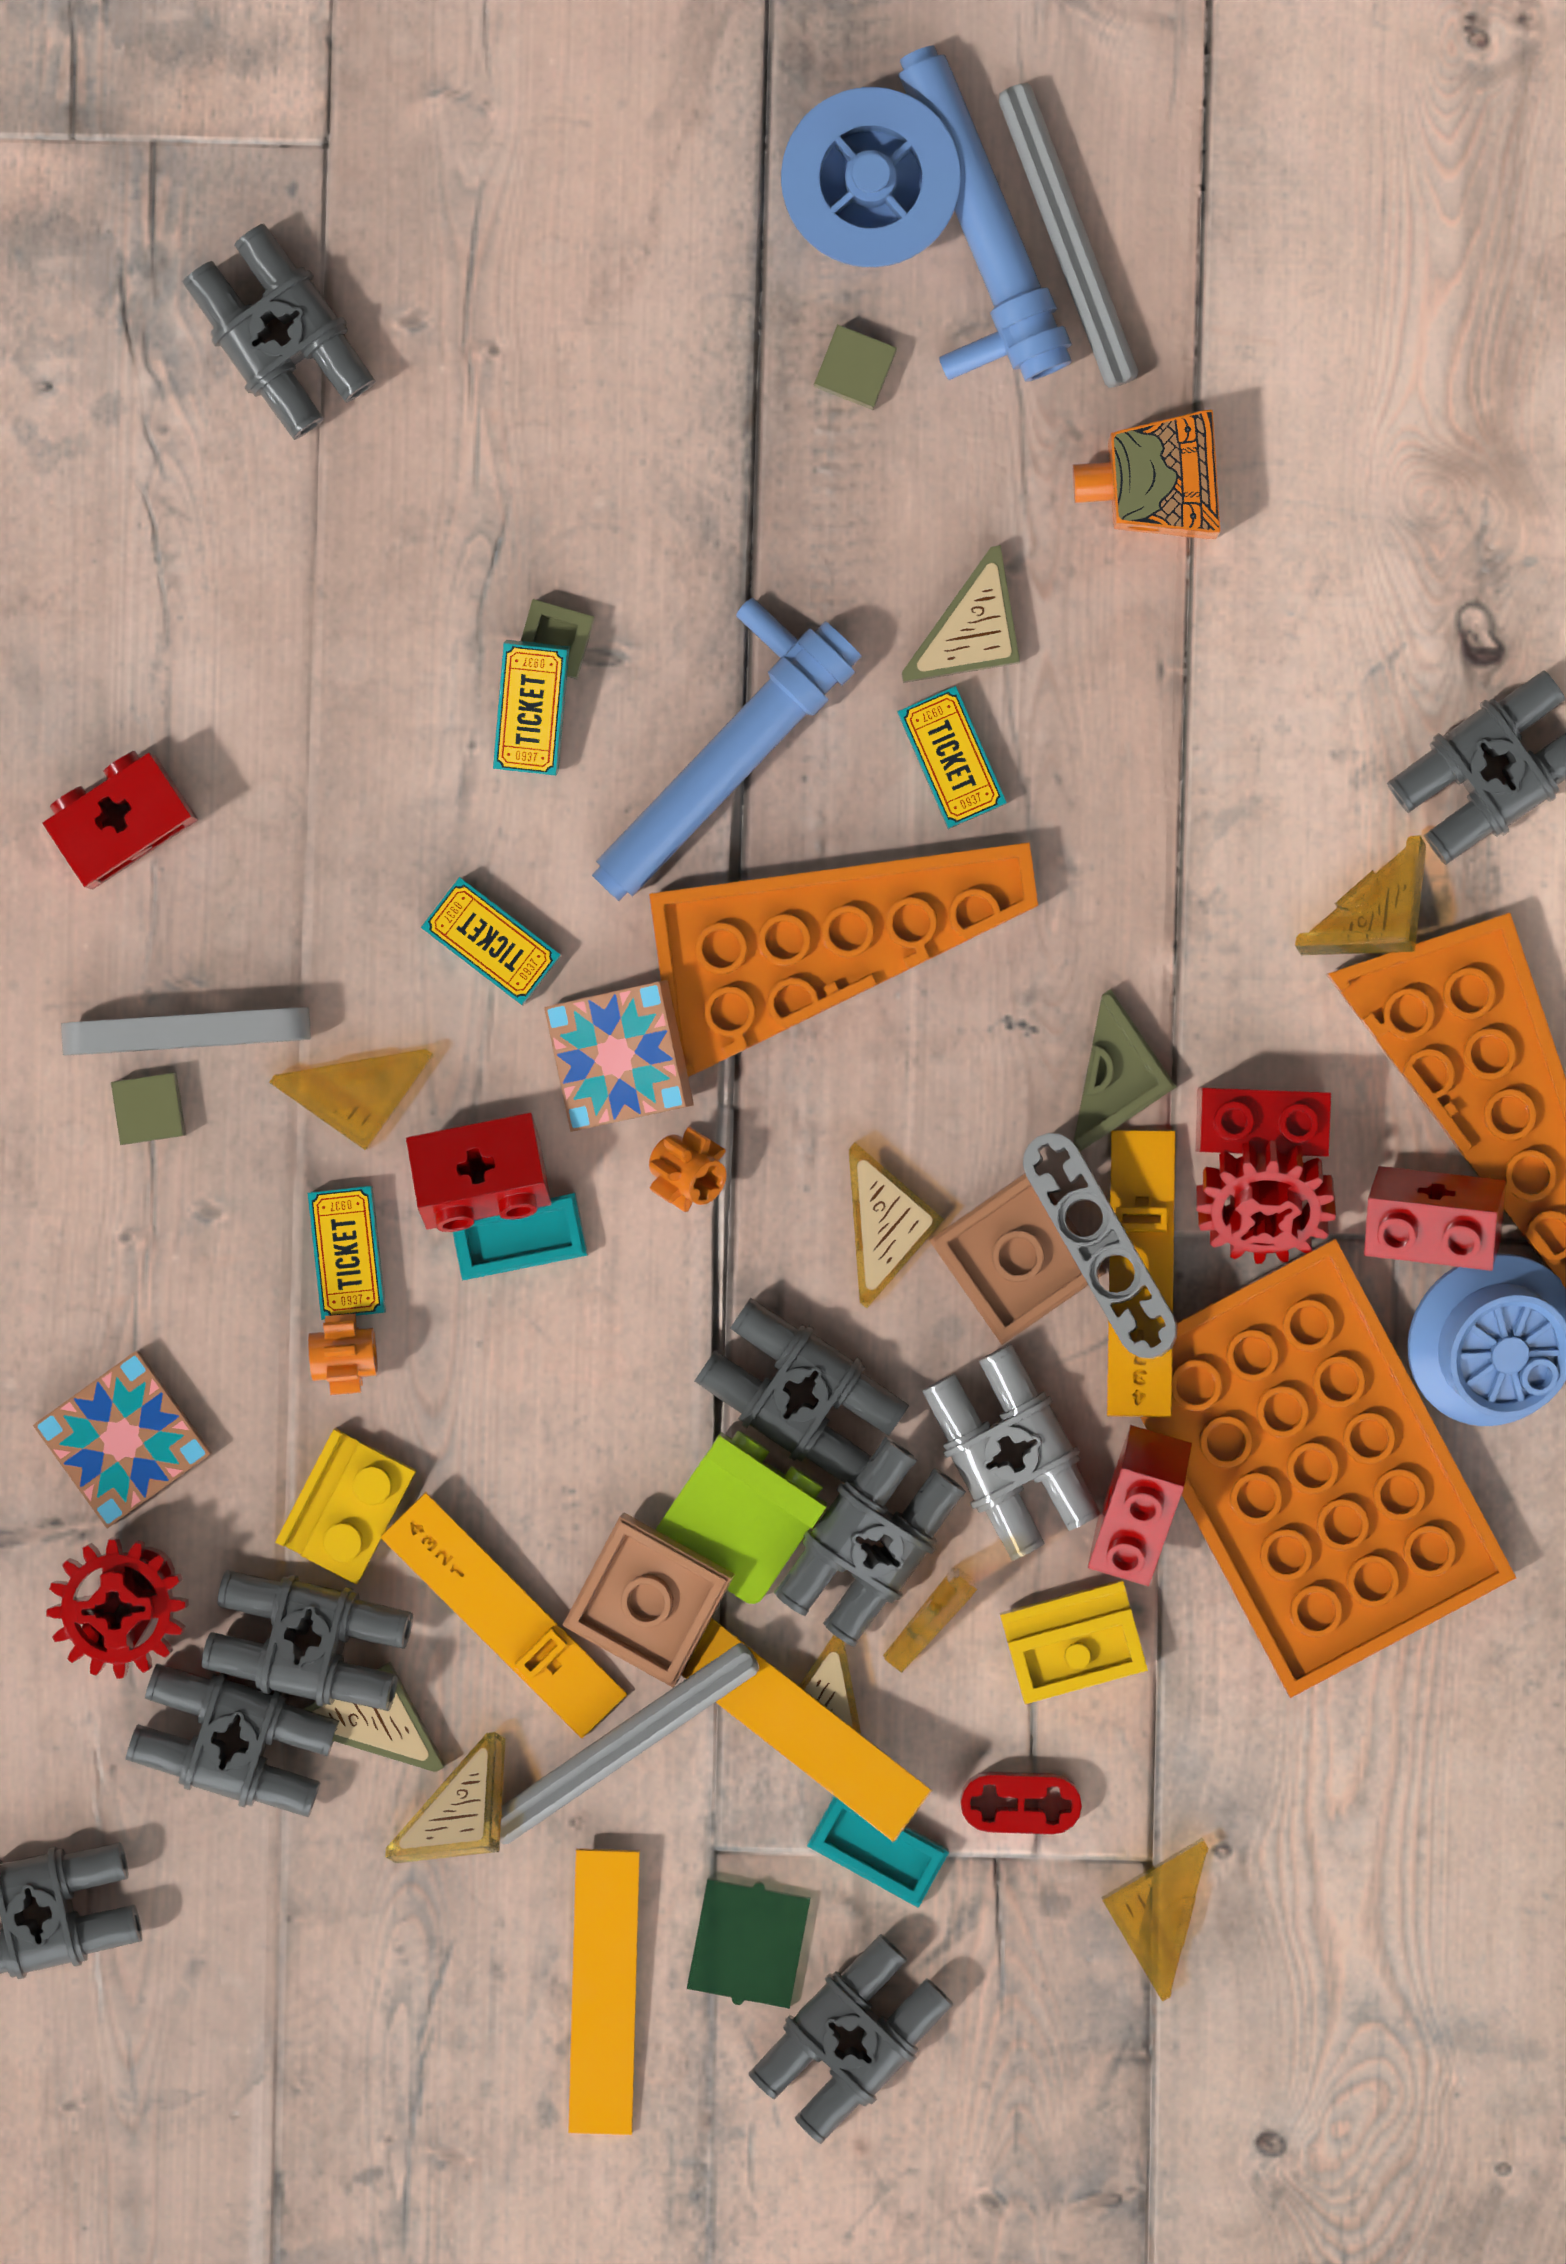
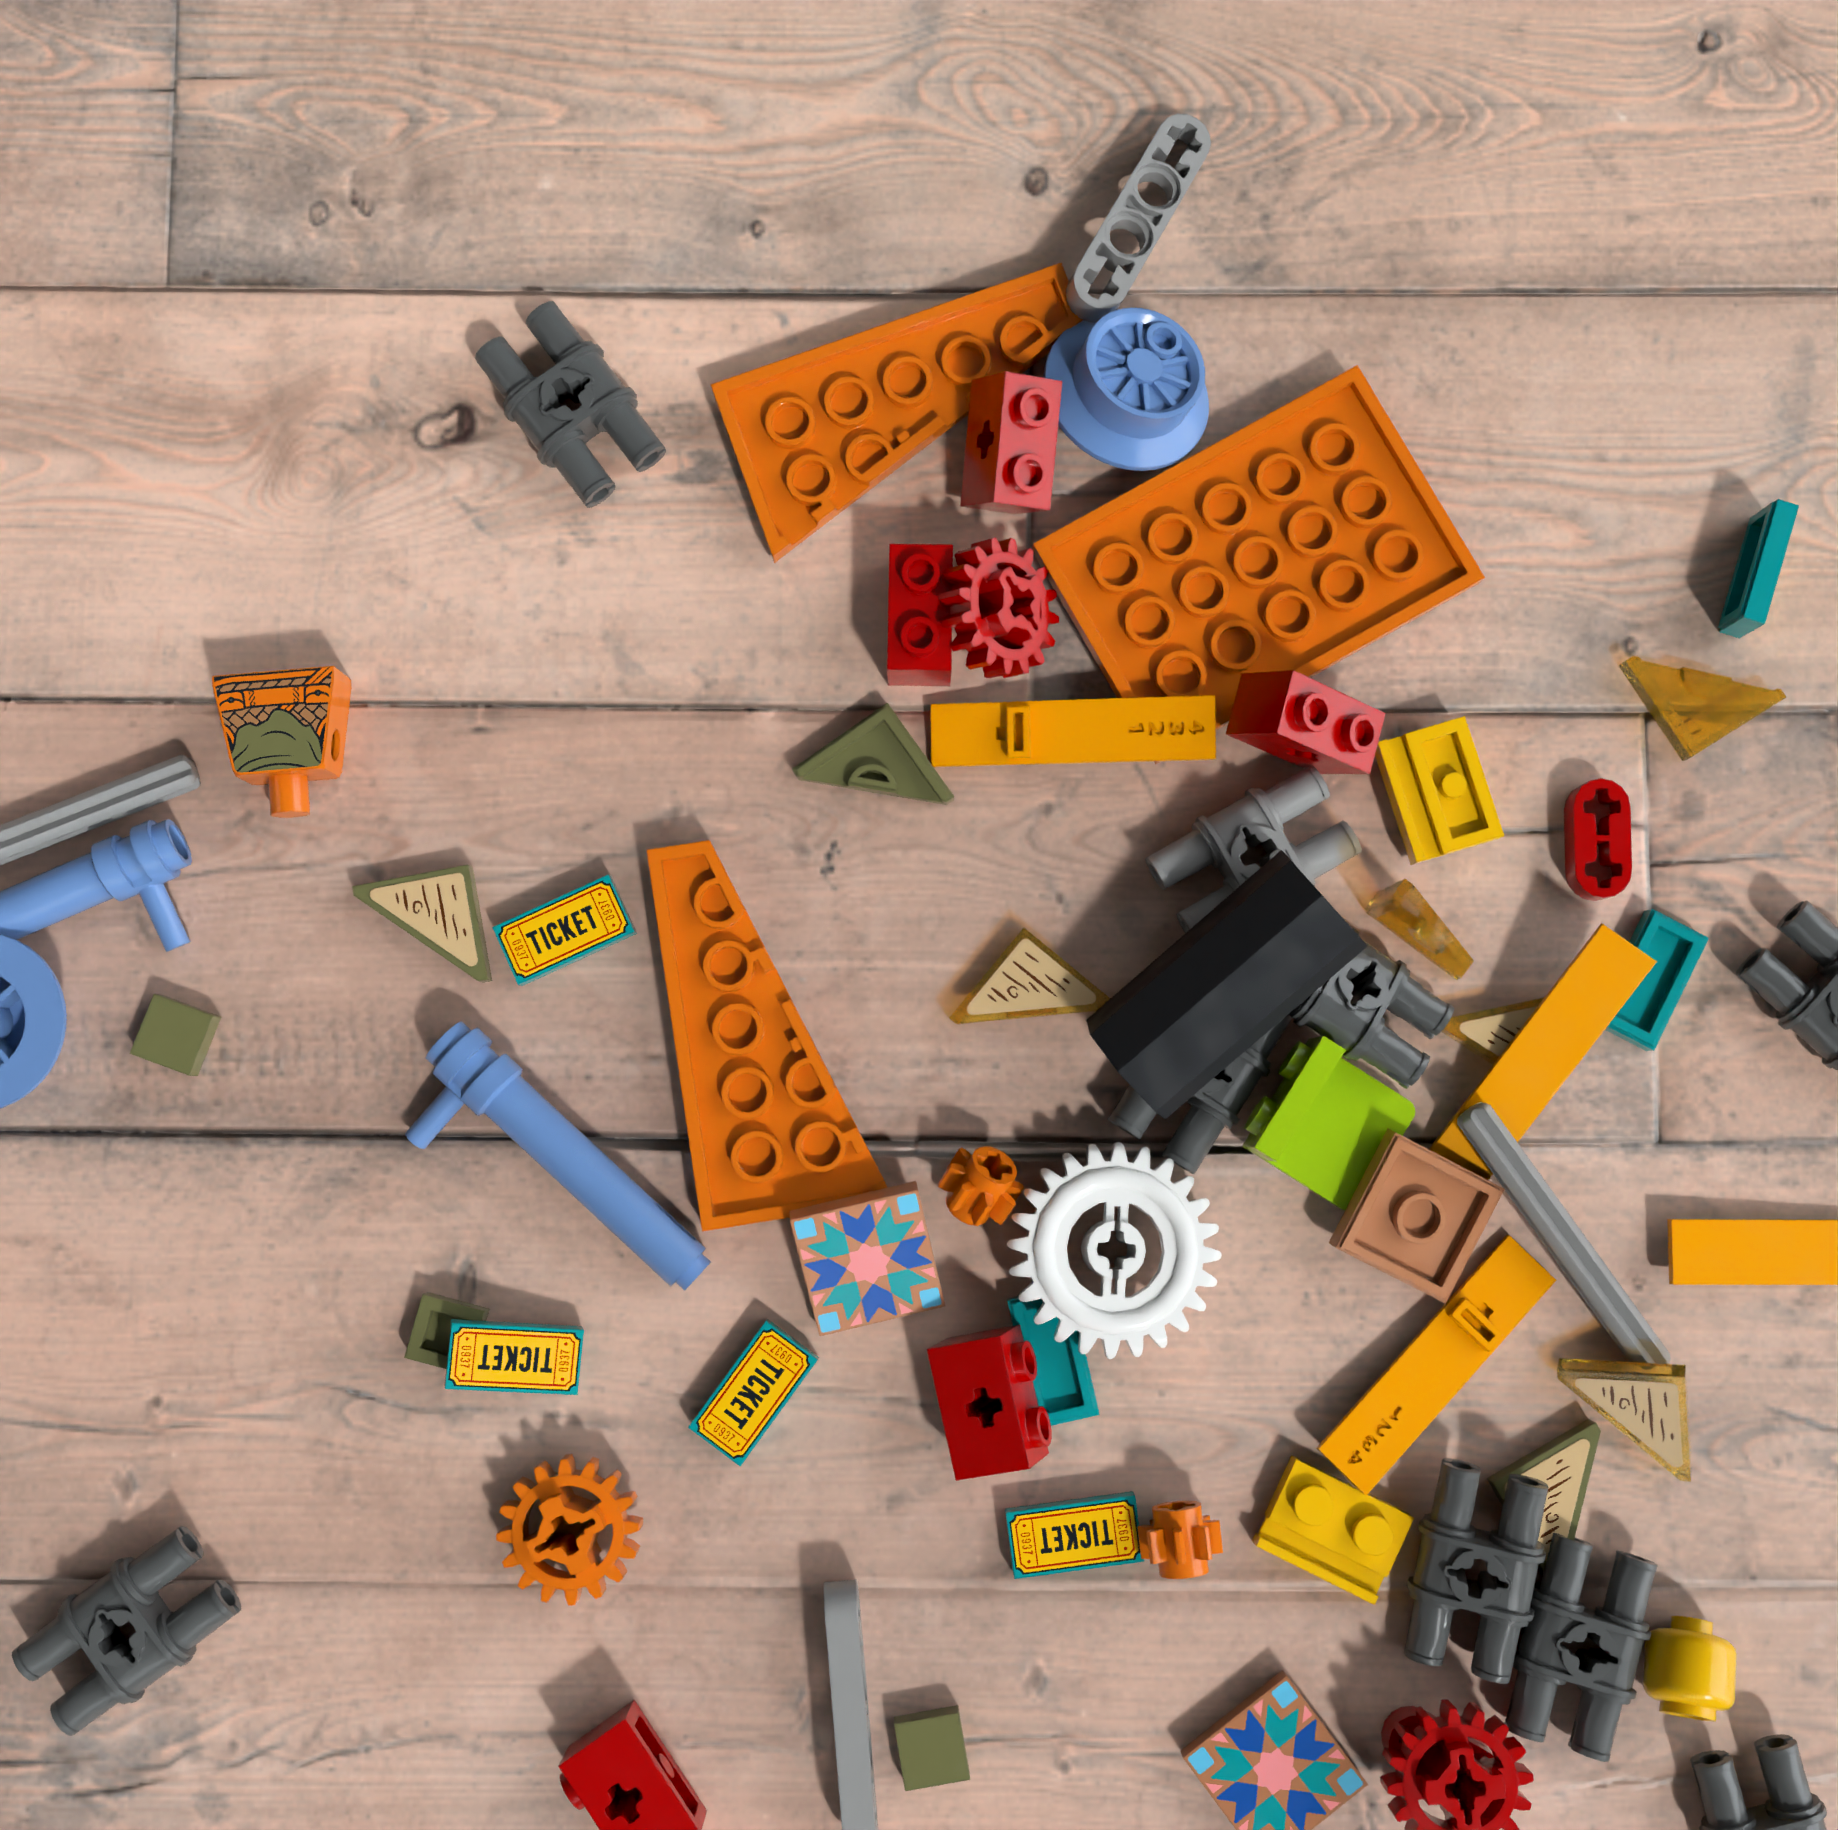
camera: 90 degrees left, 5 degrees down
(208, 1843) = (1690, 1669): none -> yellow head
(338, 773) = (578, 1554): none -> orange gear
(356, 1094) = (912, 1528): clear yellow tile -> none
(685, 1302) = (1113, 1315): none -> white gear
(748, 1943) = (1750, 1107): clear green piece -> none
(878, 1410) = (1223, 985): none -> black piece
(1011, 1259) = (1057, 855): nougat tile -> none
(1094, 1249) = (1042, 761): light grey beam -> none
(1294, 1977) = (1758, 569): none -> teal tile
(1375, 913) = (714, 515): clear yellow tile -> none

